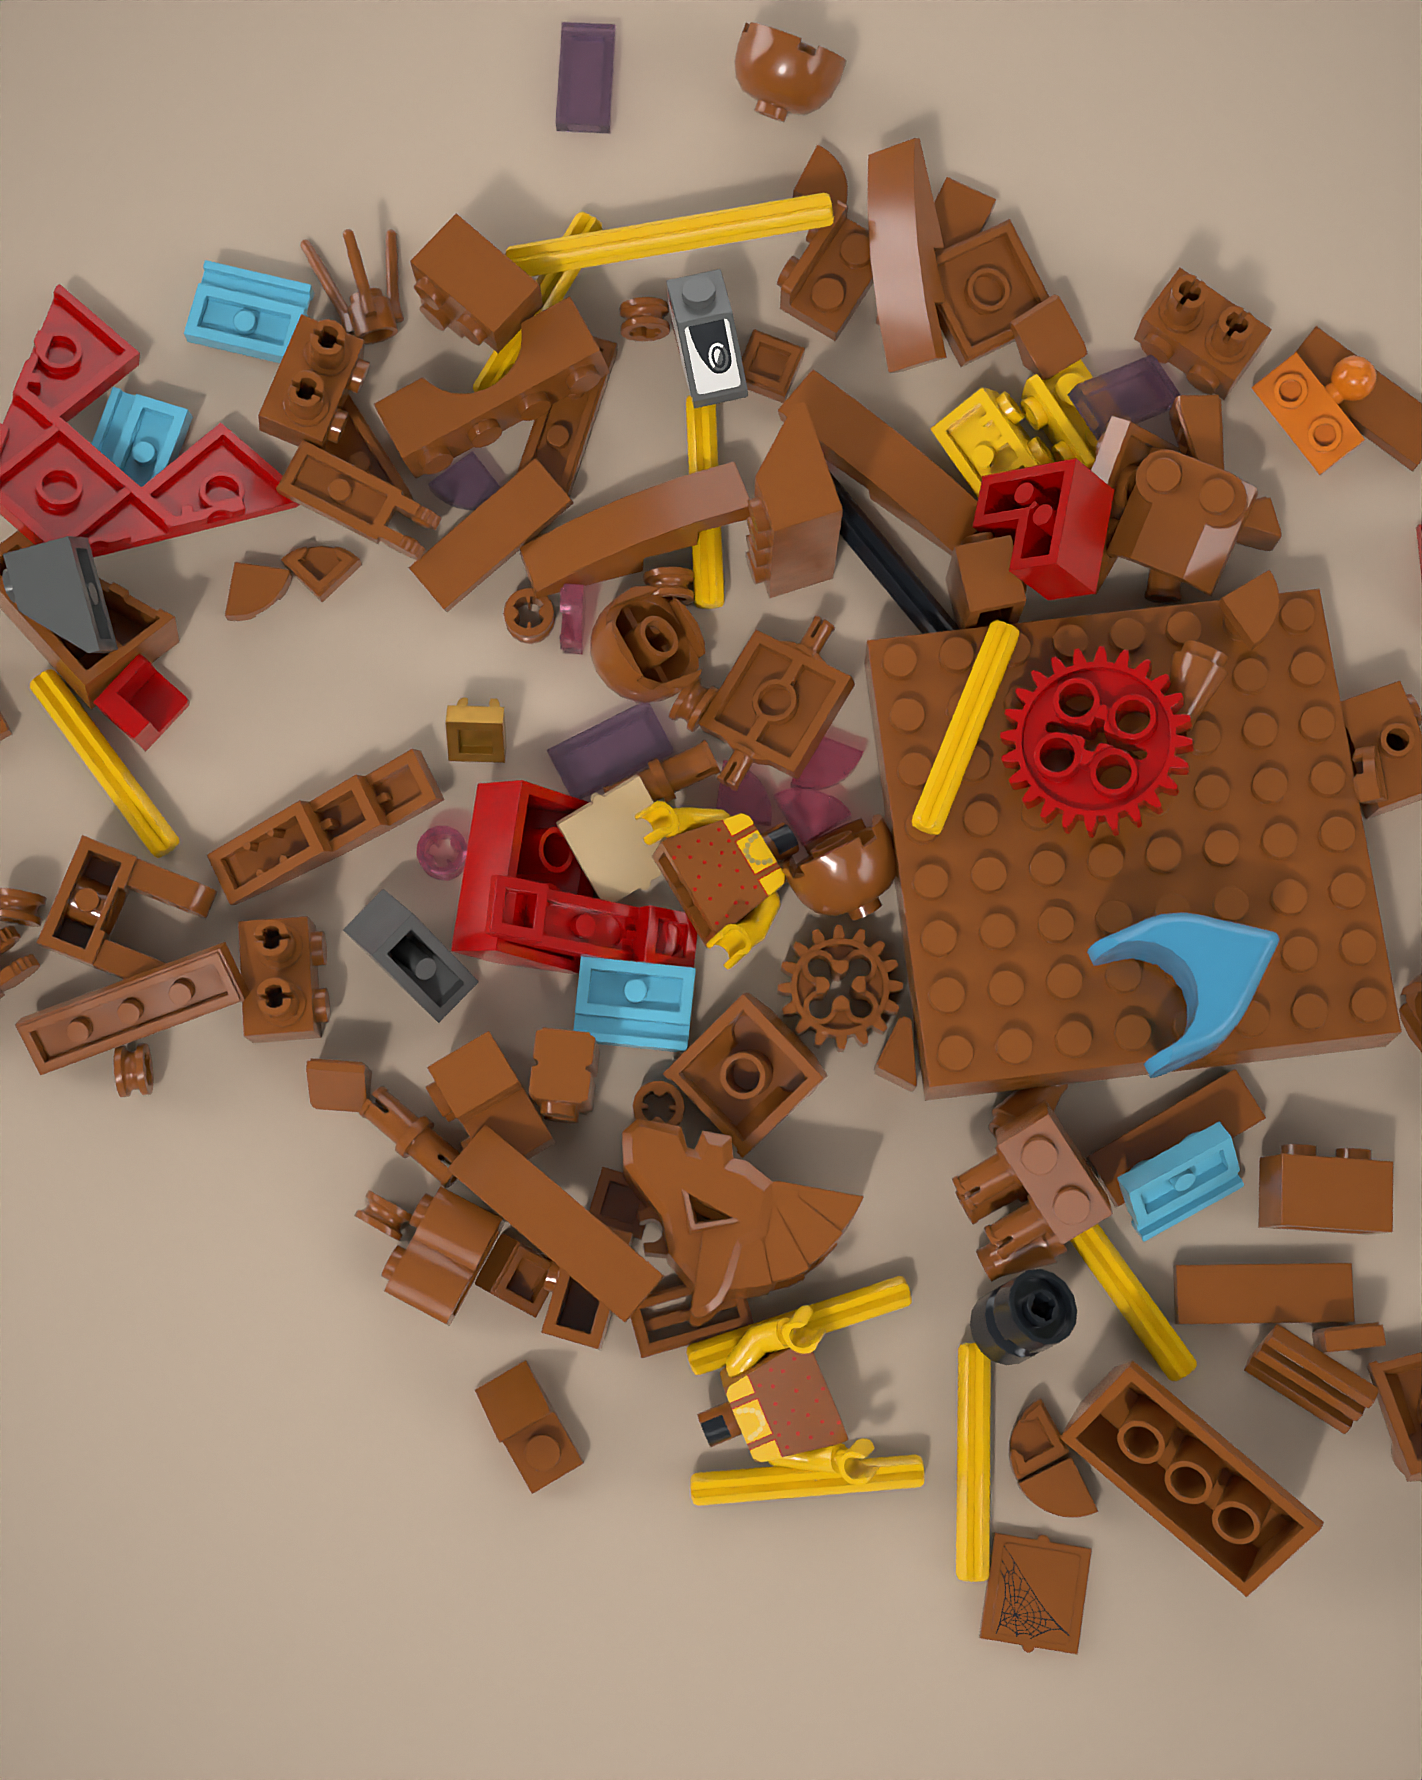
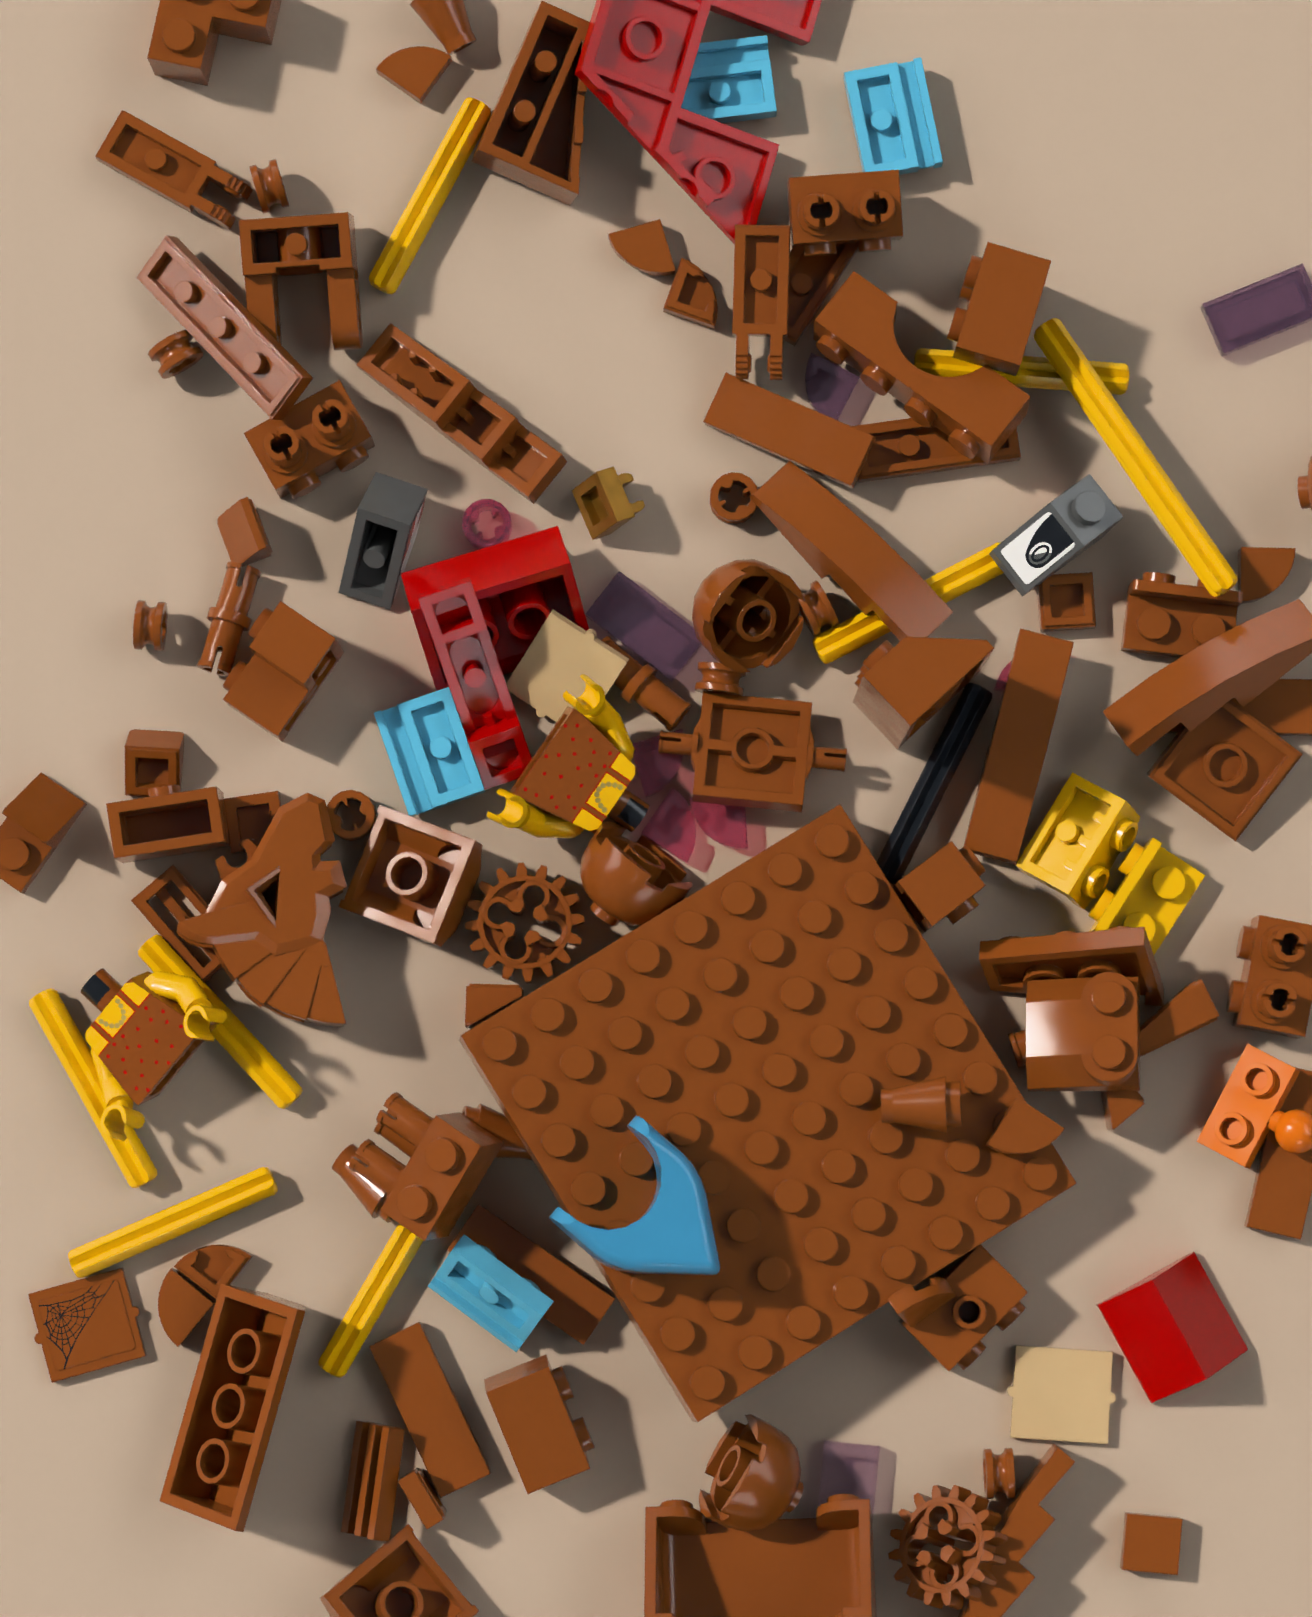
camera: 65 degrees right, 5 degrees up
(61, 591) = (543, 92): dark grey slope -> none
(142, 702) = (496, 202): red panel -> none
(370, 313) = (943, 225): dark orange plant -> none
(443, 1254) = (139, 692): dark orange brick -> none
(555, 1223) = (202, 771): dark orange slope -> none
(564, 1074) = (335, 720): dark orange brick -> none
(573, 618) = (754, 535): clear pink tile -> none
(644, 319) = (1053, 470): dark orange bush -> none
(965, 727) = (793, 924): yellow axle -> none
(1023, 1317) = (309, 1207): black wheel -> none
(1047, 338) = (1206, 840): dark orange slope -> none
(1055, 522) = (1016, 920): red brick -> none
(1114, 693) = (780, 1047): red gear -> none
(1128, 392) = (1184, 933): tile -> none

